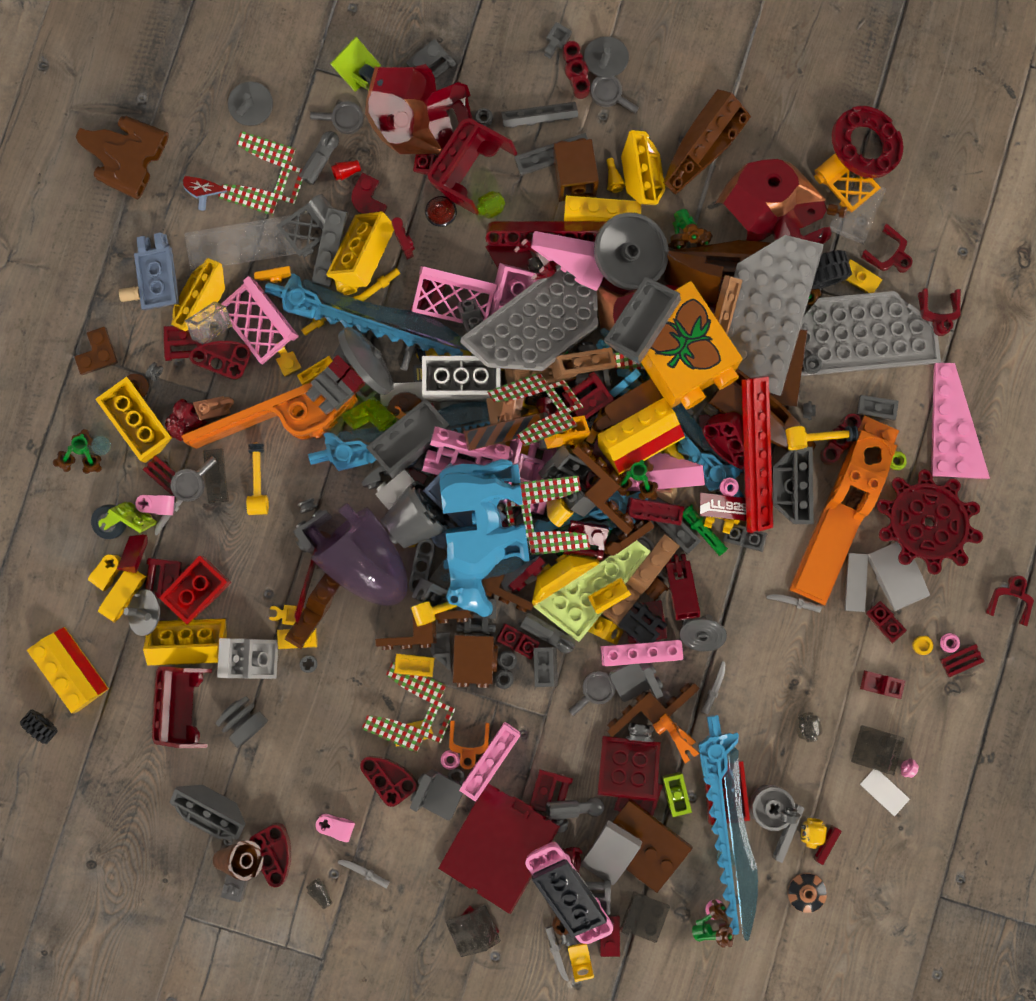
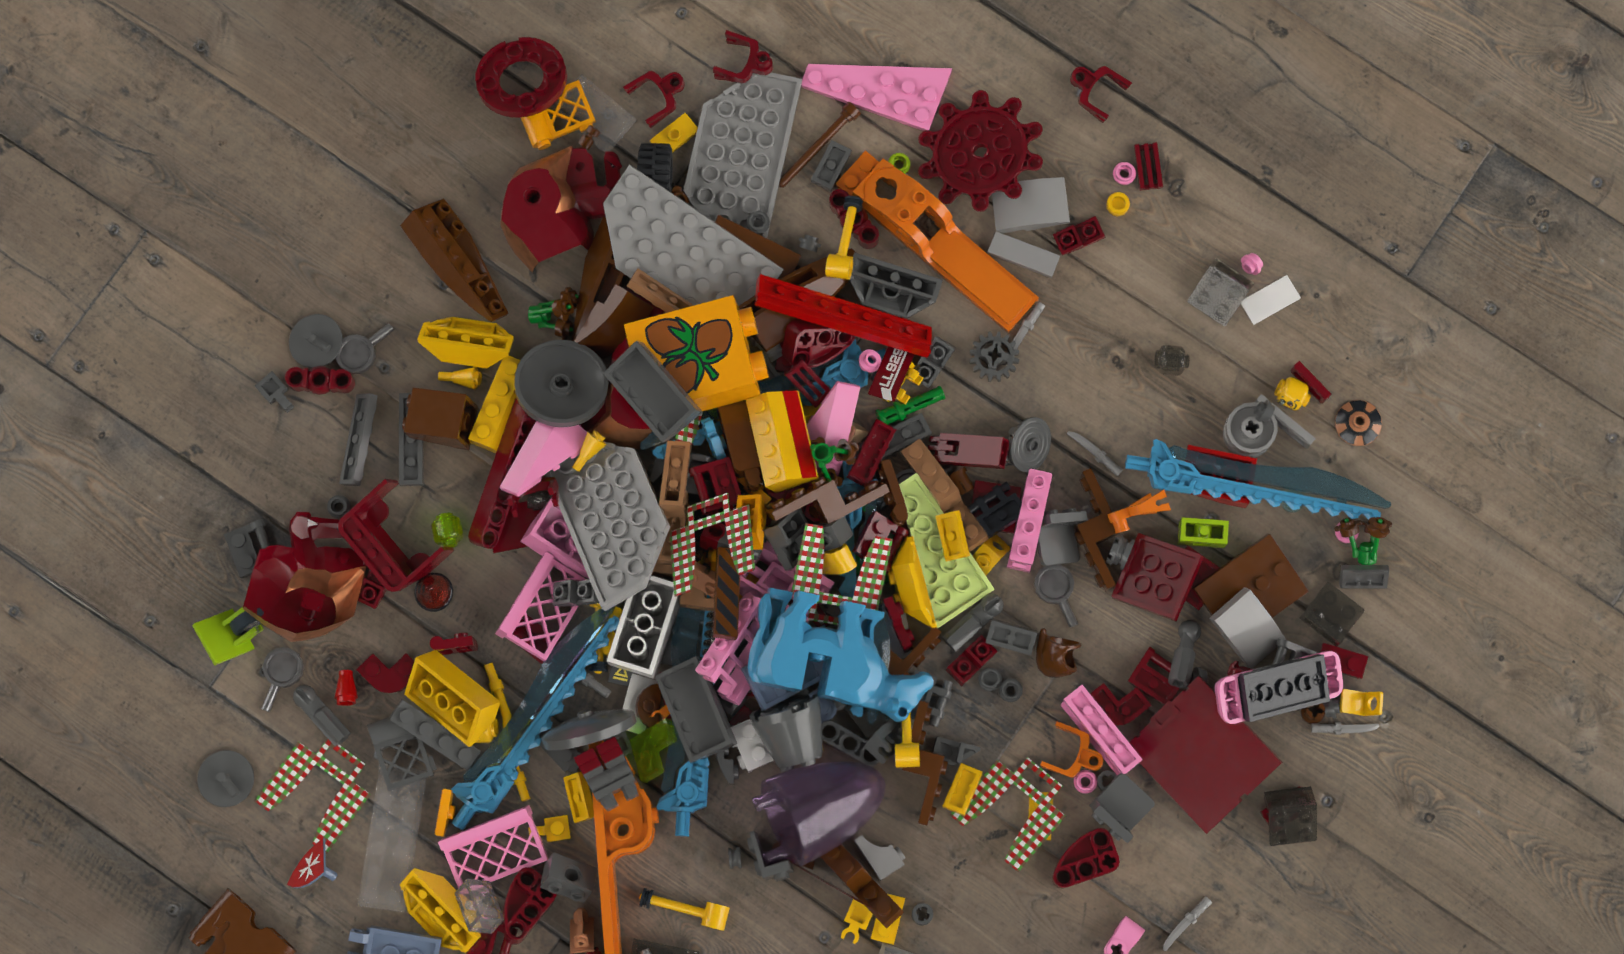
camera: 70 degrees left, 5 degrees down
(257, 391) = (568, 877): none -> dark grey brick
(340, 620) = (881, 859): none -> light grey arch
(474, 660) = (979, 715): reddish brown brick -> none
(512, 768) = (1121, 711): none -> dark red plate
(543, 703) = (1055, 655): none -> reddish brown piece
(590, 291) = (592, 445): none -> yellow cone
(683, 934) = (1364, 576): none -> flat silver plate
(702, 429) = (796, 368): none -> dark red tile
(765, 593) = (985, 355): none -> dark grey gear
(882, 684) = (1148, 262): dark red slope -> none
(924, 408) = (848, 114): none -> reddish brown piece

